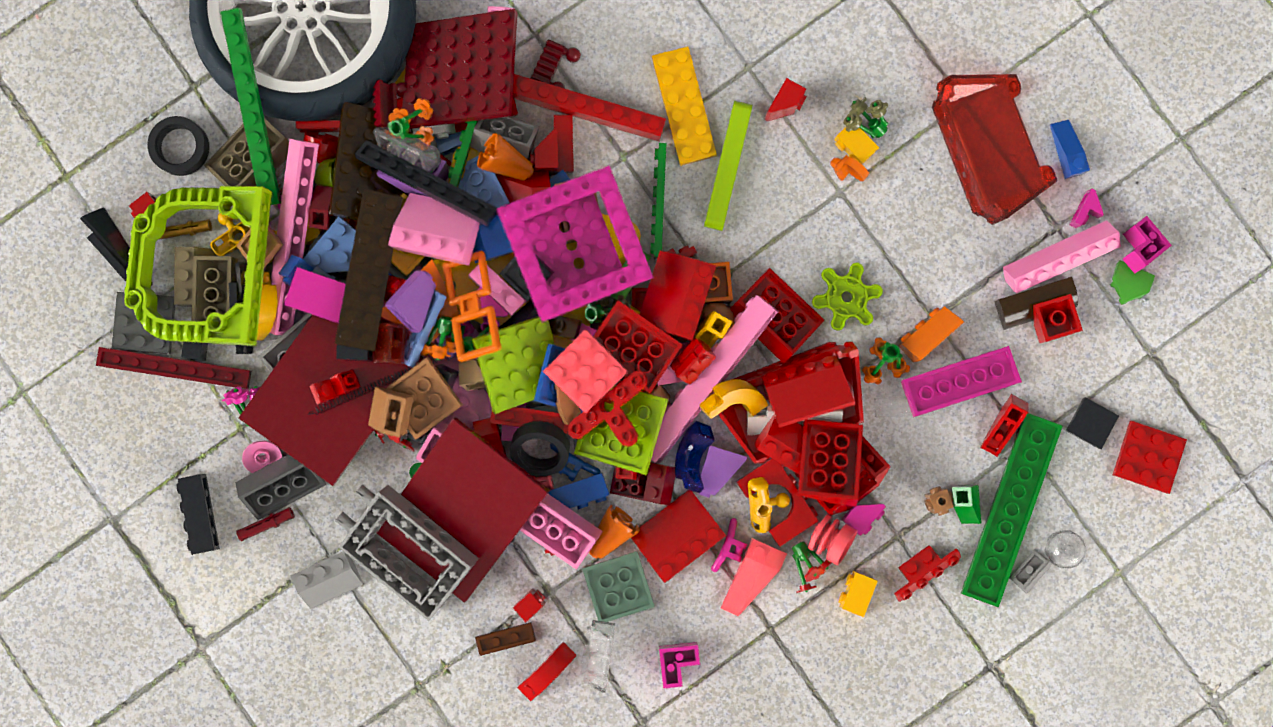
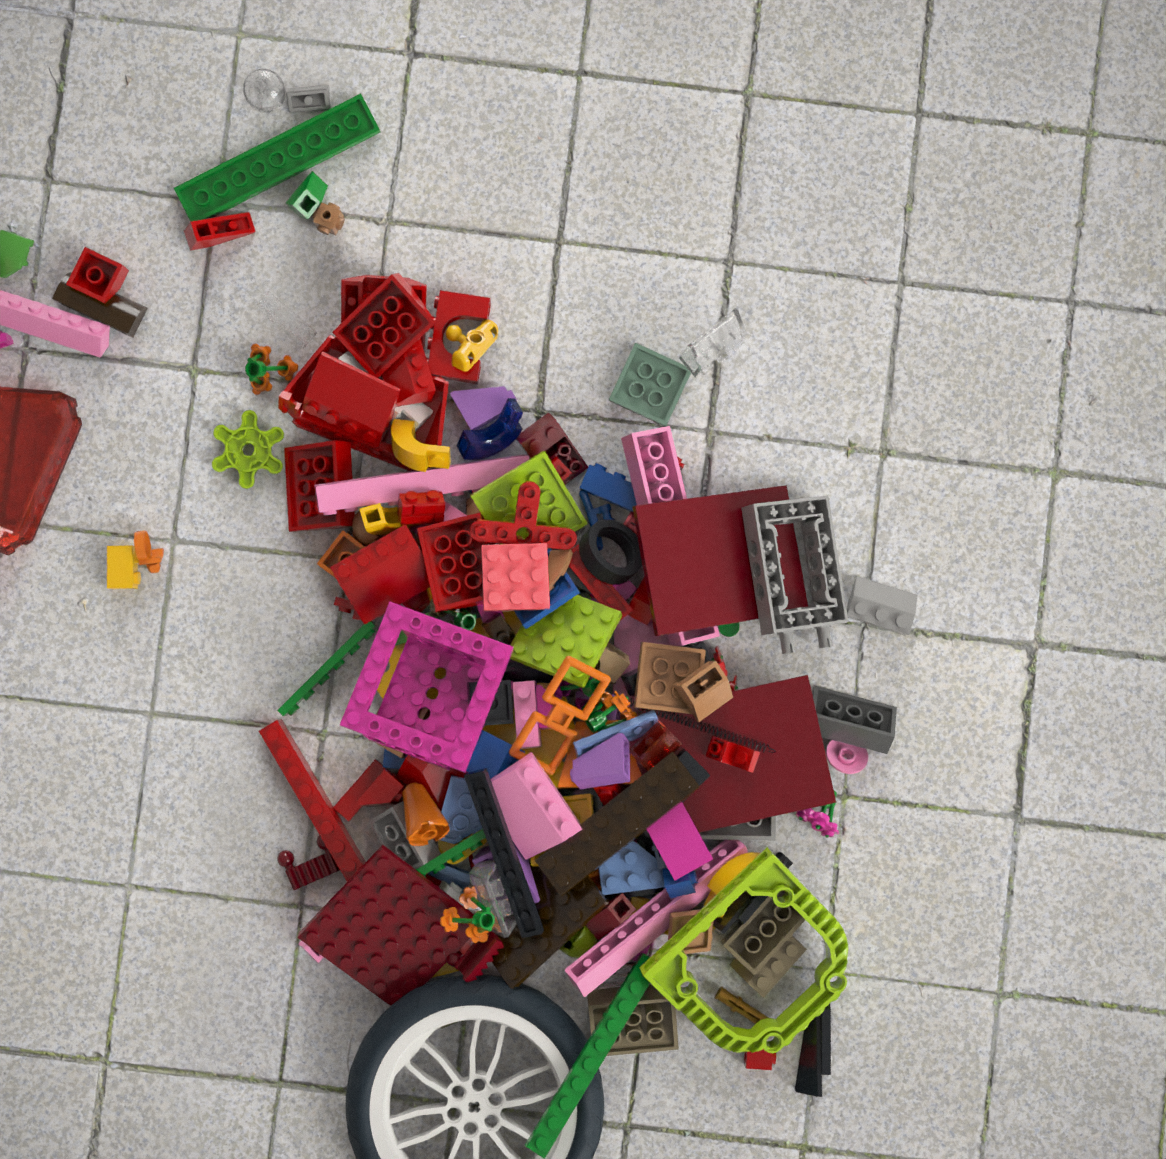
camera: 140 degrees left, 0 degrees up
(130, 333) = (864, 960): dark grey plate -> none
(156, 138) = (692, 1111): black tyre -> none
(173, 368) = (855, 897): dark red plate -> none
(194, 350) = (825, 895): black brick -> none
(198, 514) = (941, 755): black brick -> none
(228, 237) = (715, 962): yellow piece -> none
(273, 520) = (892, 697): dark red pin -> none
(318, 126) = (553, 993): red tile -> none
(327, 144) = (555, 970): red cylinder -> none
(505, 638) = (779, 427): reddish brown tile -> none
(529, 604) = (734, 434): red brick -> none
(547, 671) = (769, 368): red arch -> none
(616, 530) = (609, 430): orange cone -> none
(673, 658) = (657, 287): dark pink brick -> none
(677, 535) = (564, 382): red slope -> none
(684, 106) = (233, 730): yellow plate -> none
(727, 545) = (537, 335): dark pink piece -> none
(728, 165) = (243, 646): lime beam -> none
(755, 571) = (529, 297): coral wedge -> none
(787, 100) = (144, 654): red slope -> none
(803, 553) = (476, 278): plant -> none
(832, 539) = (442, 265): coral wheel -> none
(857, 594) = (462, 205): yellow brick -> none
(862, 516) = (402, 261): dark pink slope -> none
(878, 109) = (91, 566): olive plant -> none
(922, 569) = (392, 178): red bracket -> none
(929, 333) = (209, 357): orange slope -> none
(961, 381) = (221, 296): dark pink plate -> none
(1092, 423) = (148, 169): black tile -> none
(1149, 457) = (128, 101): red plate -> none

